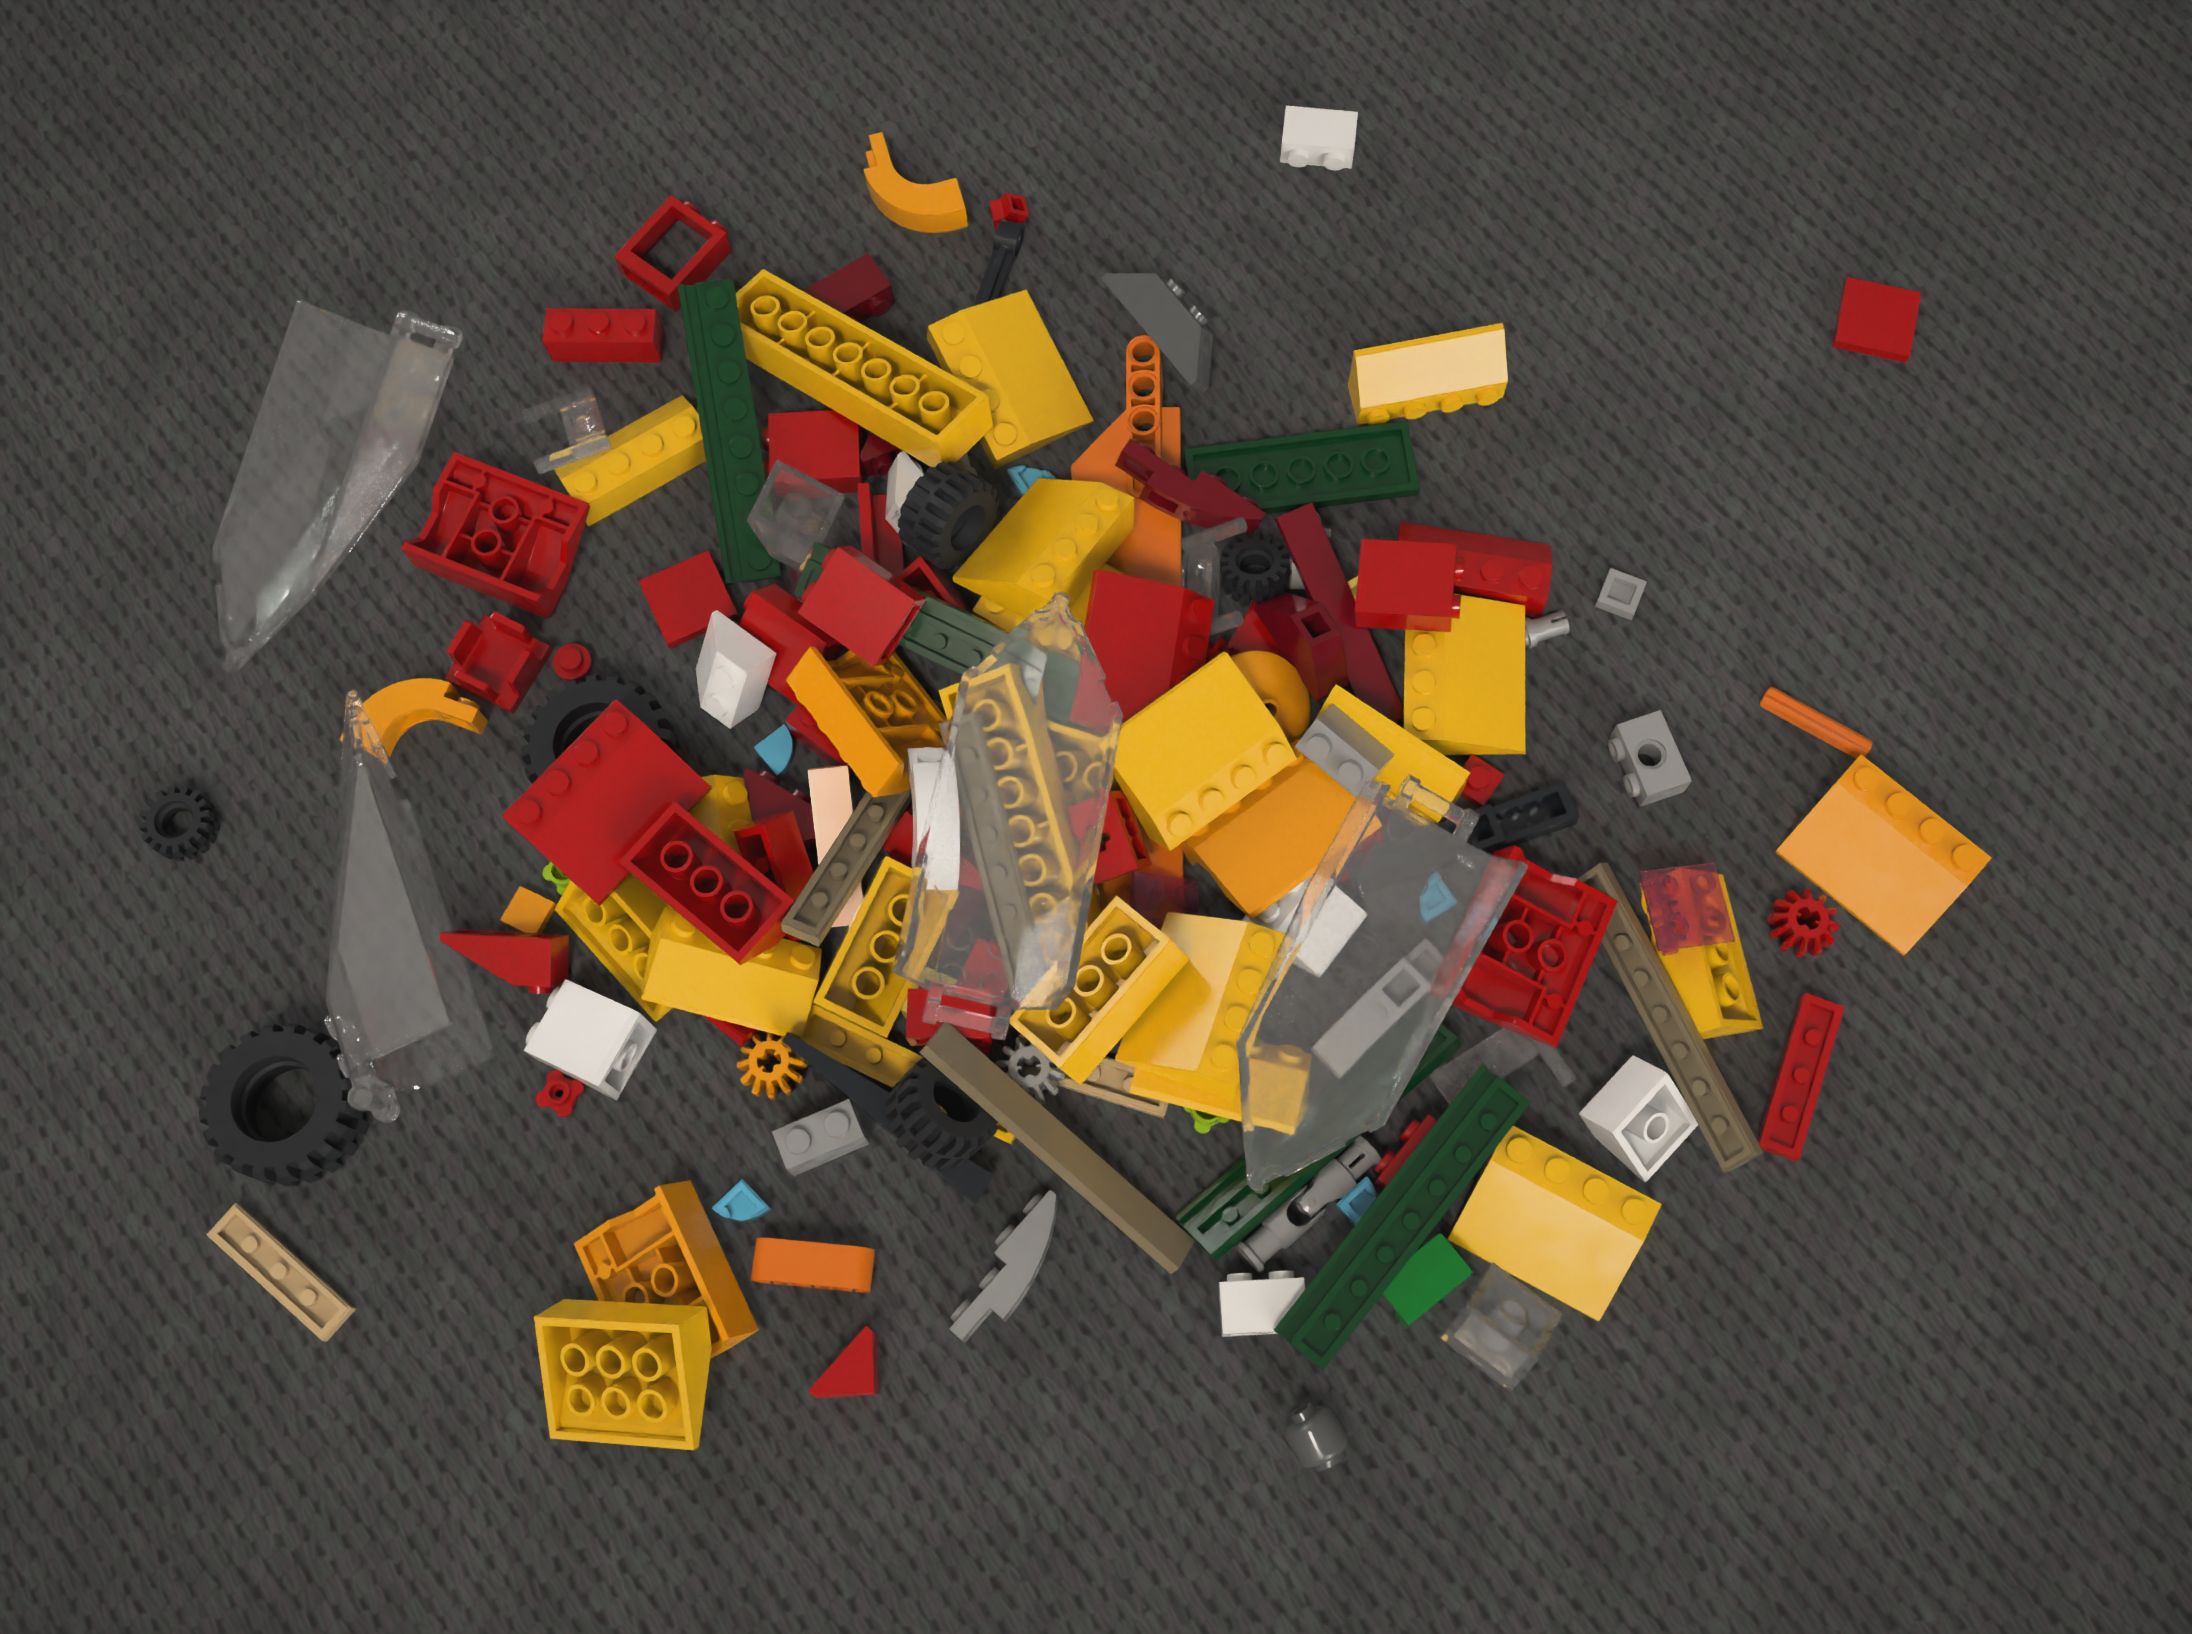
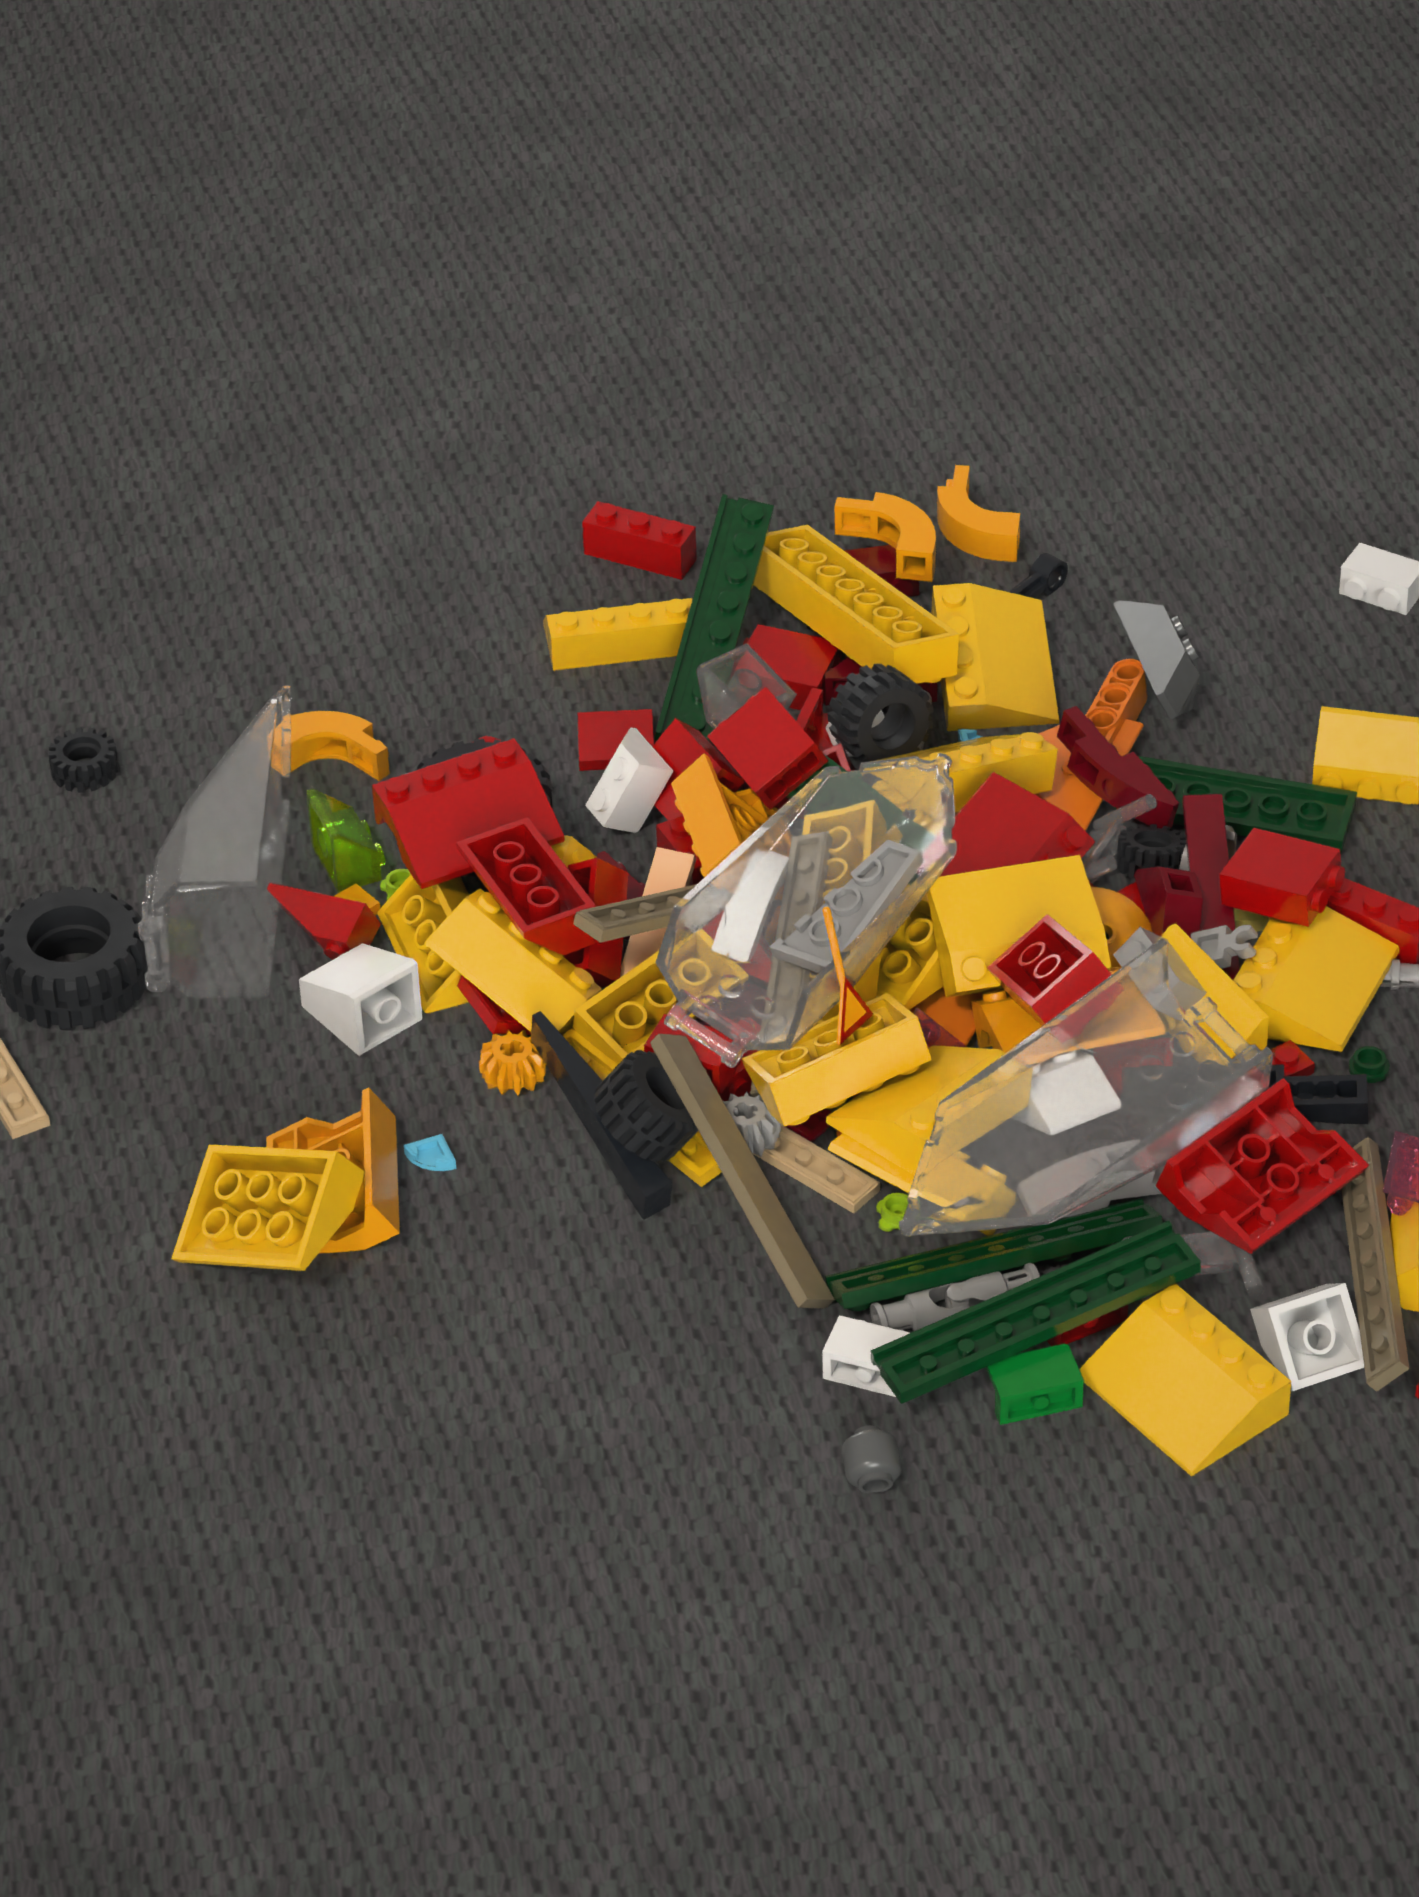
camera: 20 degrees right, 30 degrees down
(322, 463) = (353, 535): clear windscreen -> none
(488, 845) = (343, 842): none -> clear neon green slope
(496, 660) = (419, 729): red panel -> none
(500, 535) = (471, 643): red piece -> none
(564, 1104) = (312, 1031): red plate -> none
(582, 425) = (583, 591): clear plate -> none
(697, 269) = (699, 495): red window -> none
(777, 751) = (637, 859): medium azure tile -> none
(813, 1264) = (473, 1206): orange beam -> none
(820, 1137) = (529, 1120): light grey brick -> none
(853, 1371) = (465, 1287): red slope -> none
(857, 243) = (896, 523): none -> light orange arch
(1009, 207) = (1062, 550): red piece -> none
(1023, 1254) = (663, 1261): light grey slope -> none
(1047, 823) = (852, 907): none -> light grey wing
(1103, 949) = (852, 1008): none -> light orange piece
(1126, 848) = (909, 968): red brick -> none
(1271, 827) = (1048, 970): none -> red brick
(1374, 684) = (1223, 944): none -> light grey plate
(1502, 1327) = (1089, 1438): clear slope -> none
(1552, 757) = (1369, 1061): none -> dark green plate

